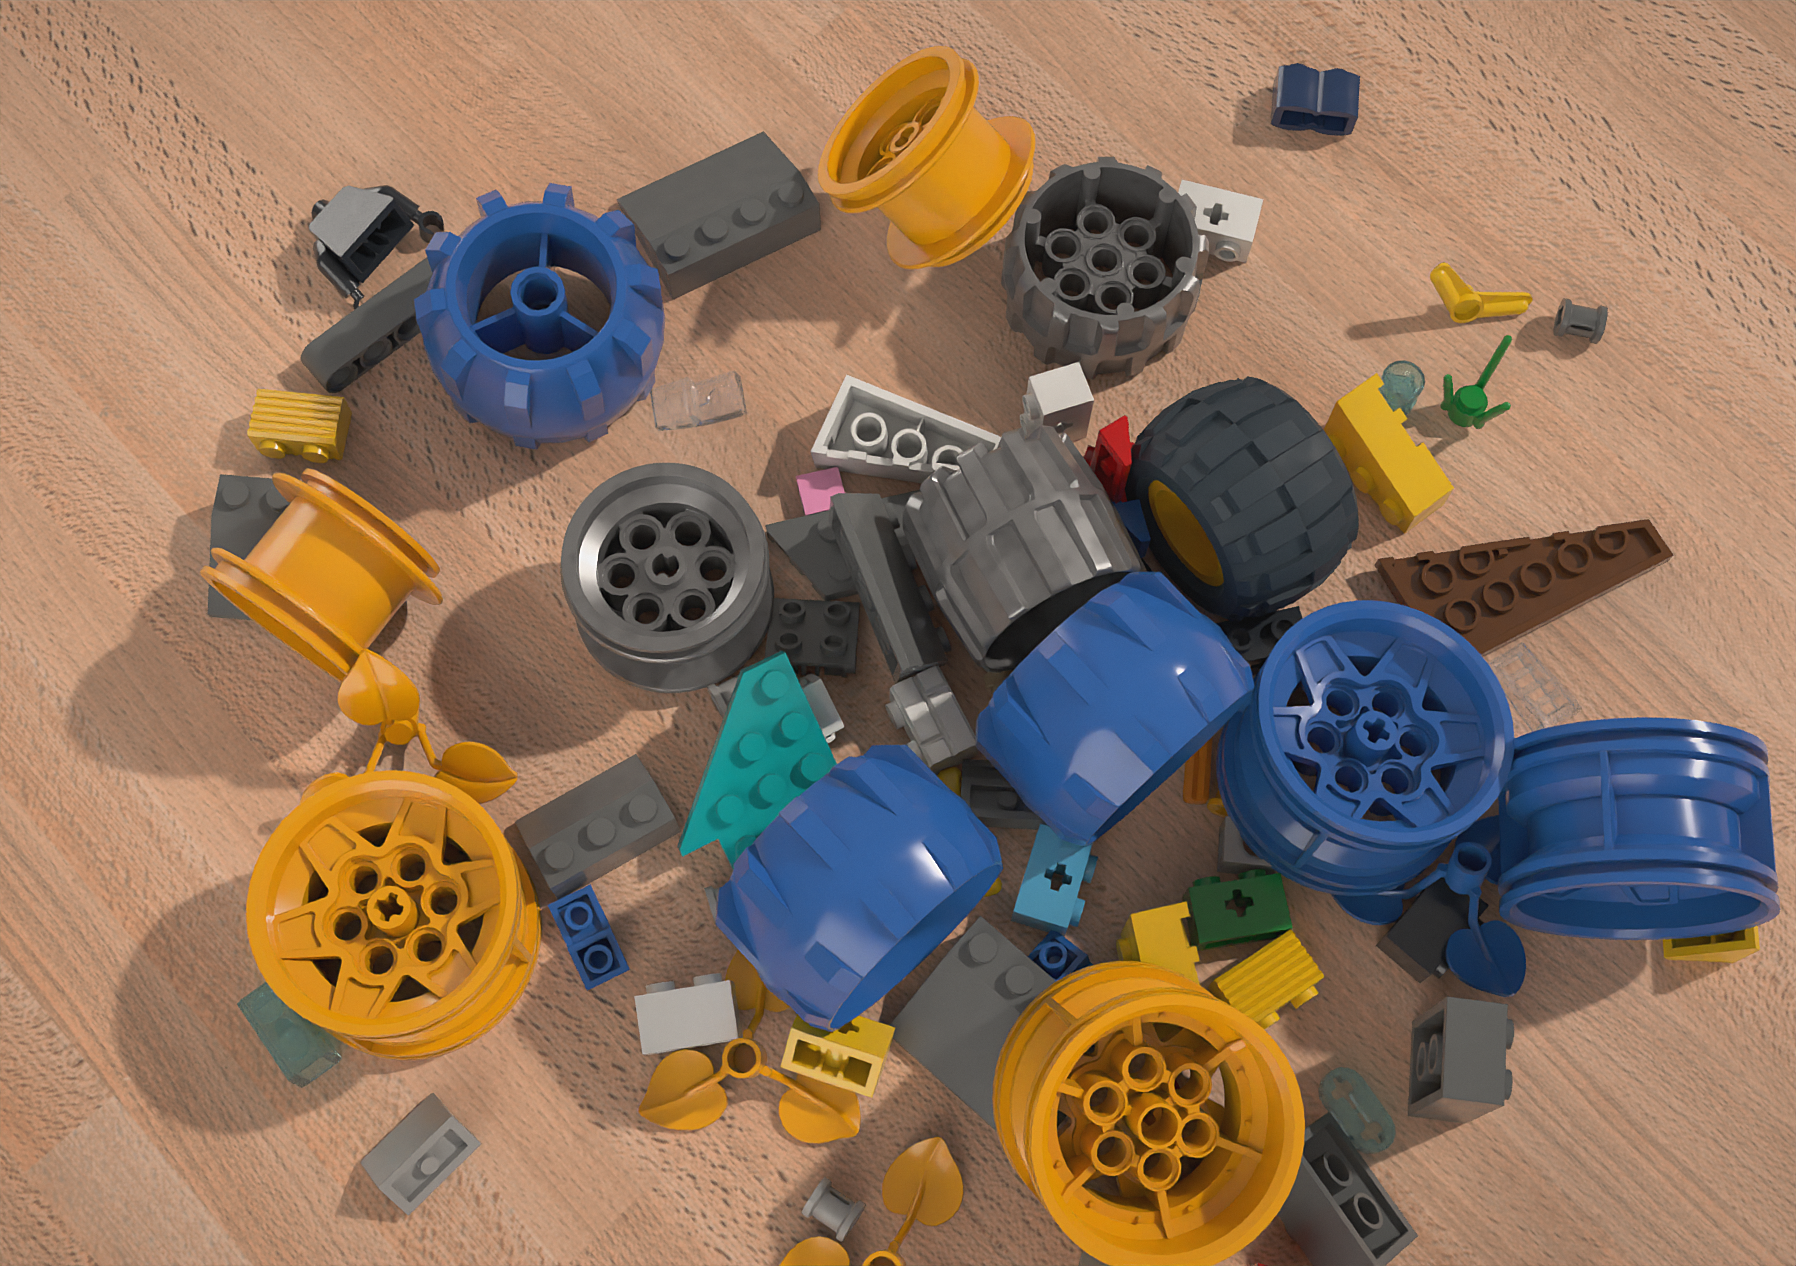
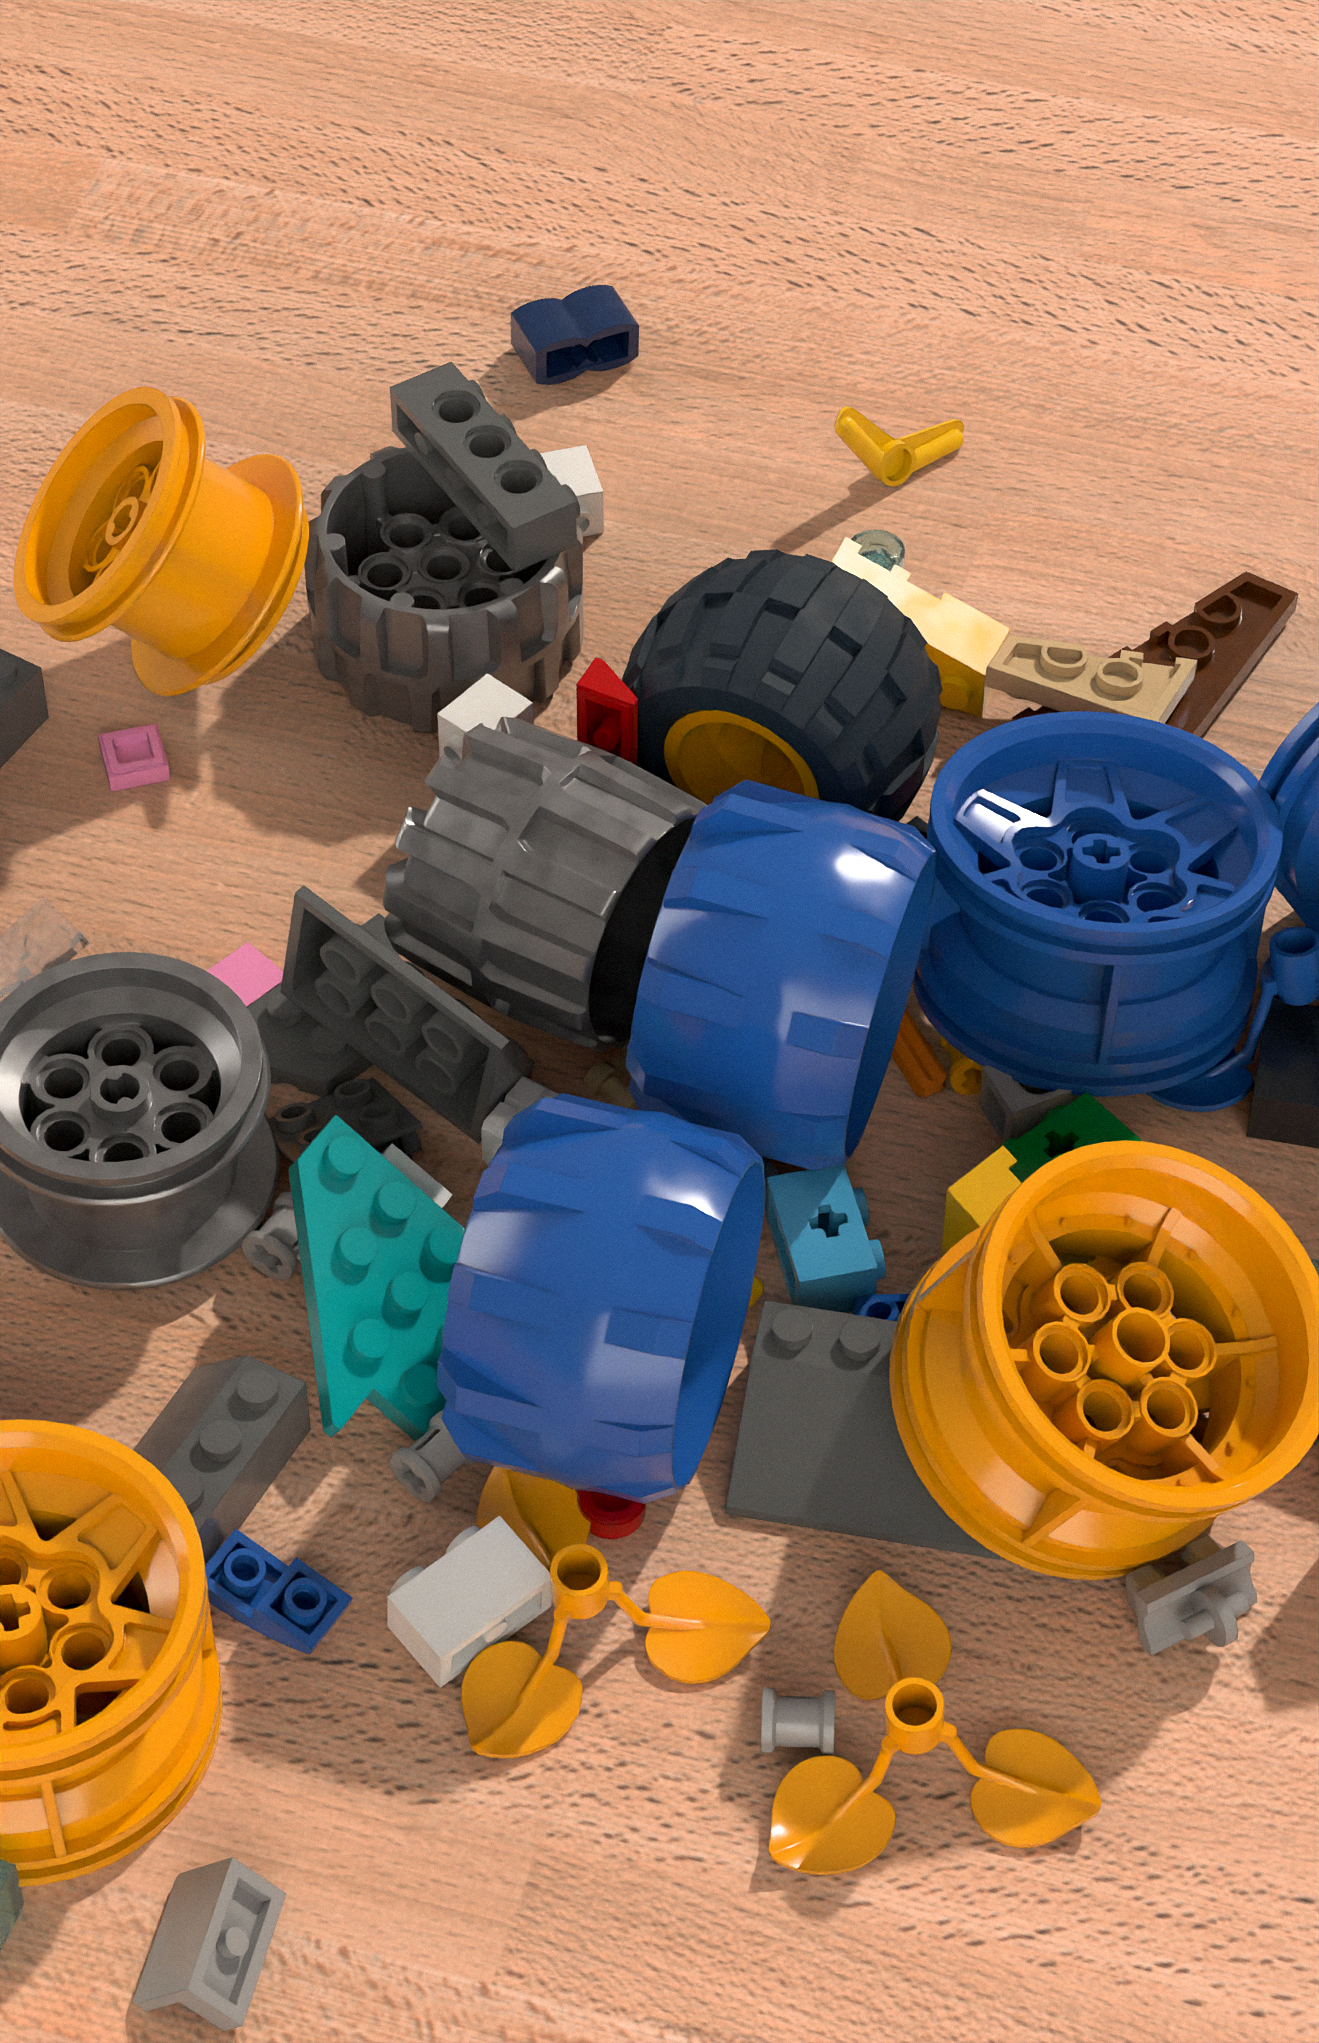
camera: 30 degrees left, 20 degrees down
(845, 1058) = (684, 1536): yellow brick -> none
(852, 288) = (134, 757): none -> bright pink tile
(891, 436) = (265, 858): white wedge -> none
(1153, 271) = (484, 466): none -> dark grey brick
(1470, 401) = (965, 552): green plant -> none
(1487, 568) = (1071, 680): none -> tan wing
(1580, 321) = (1032, 420): dark grey bush -> none

